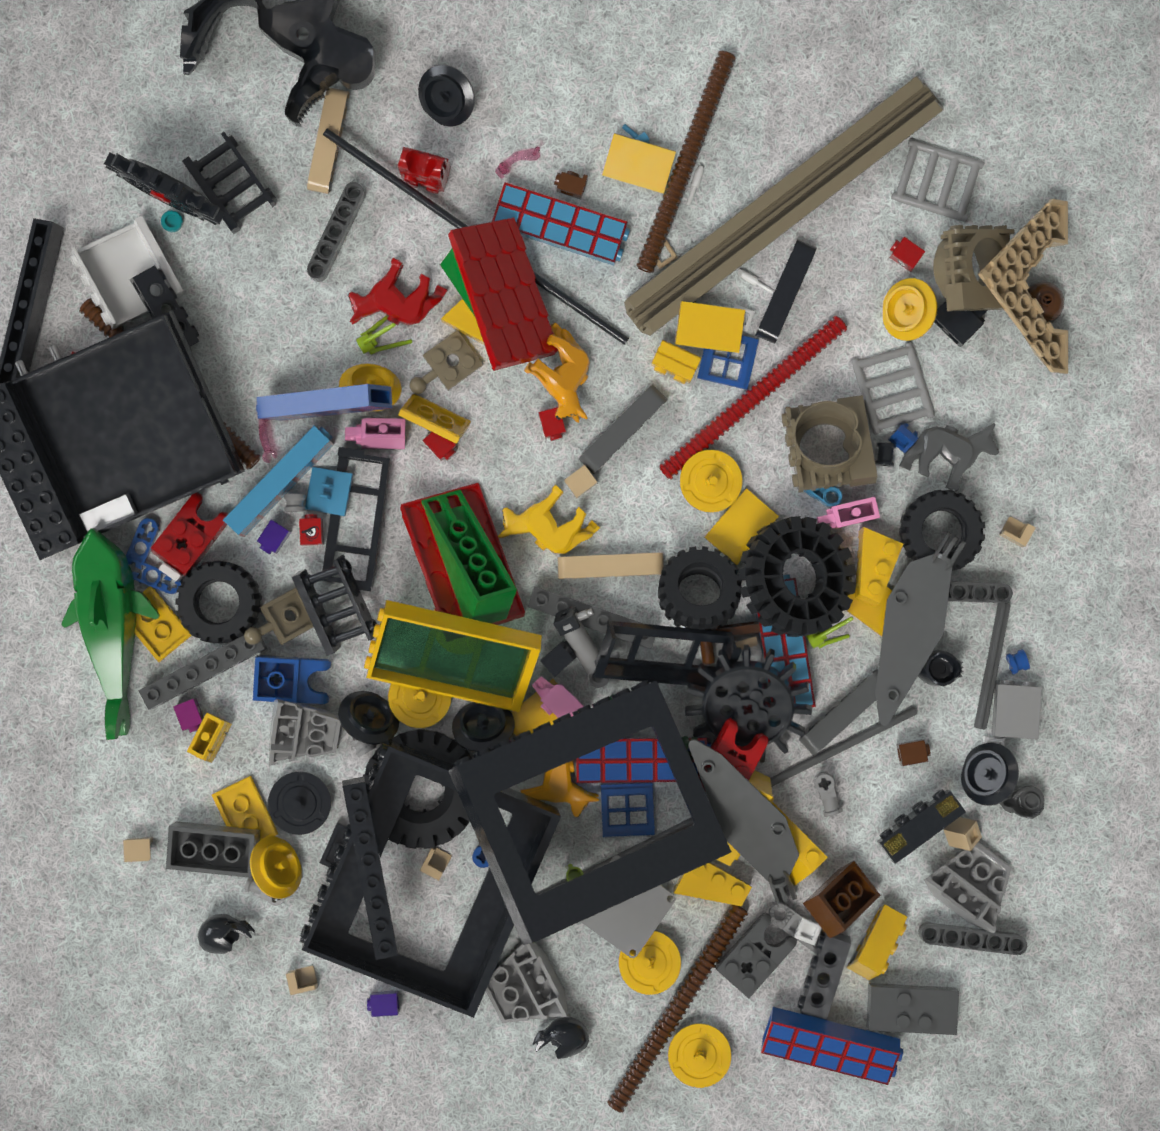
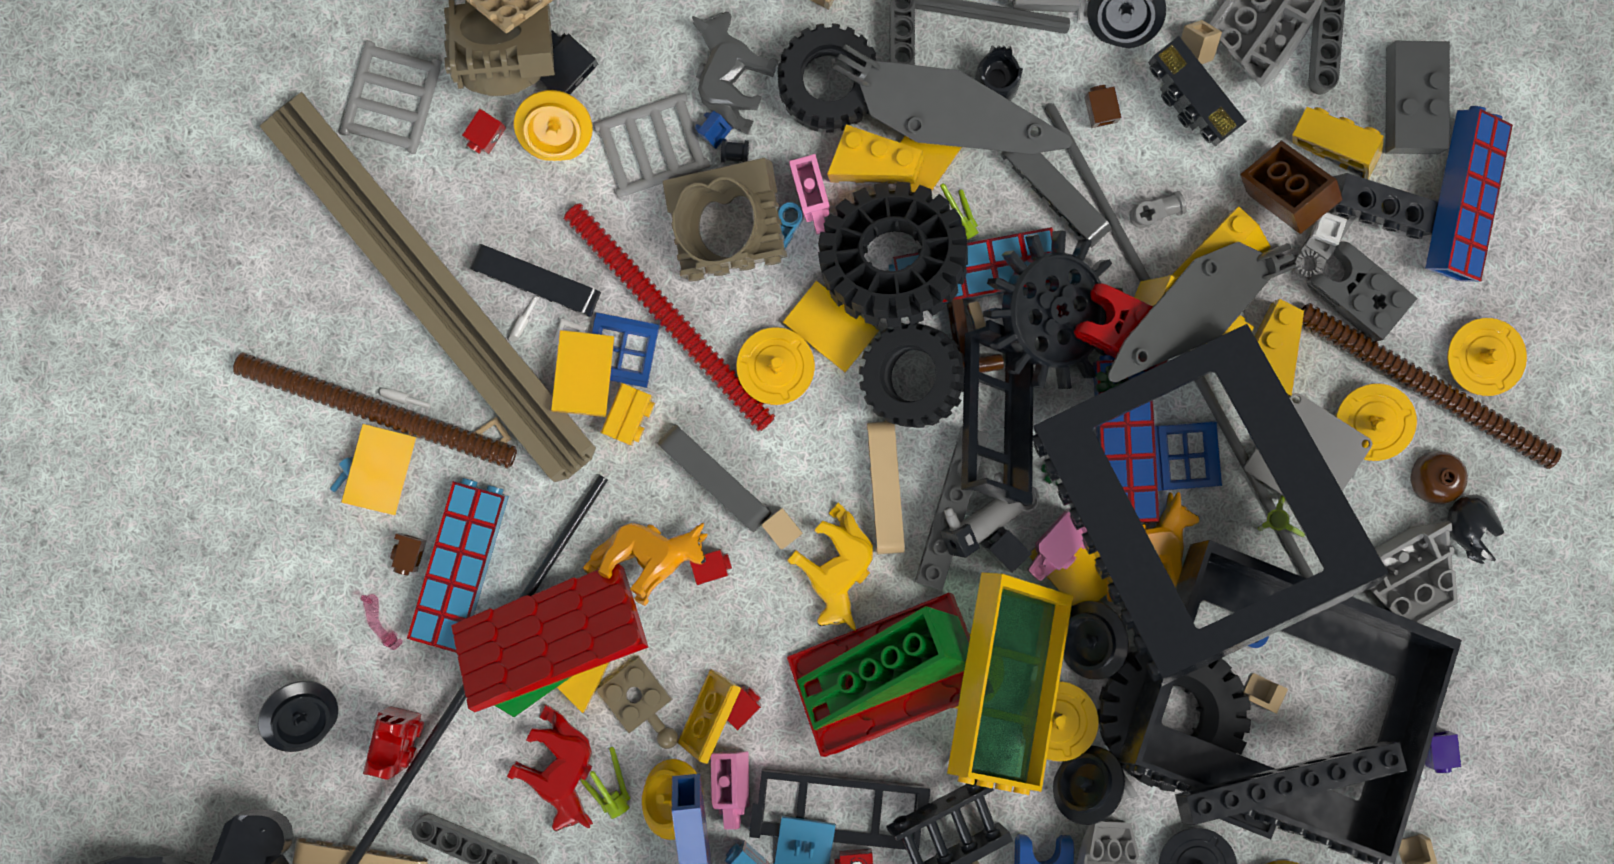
camera: 95 degrees left, 0 degrees up
(601, 1003) = (1439, 477): none -> reddish brown cylinder

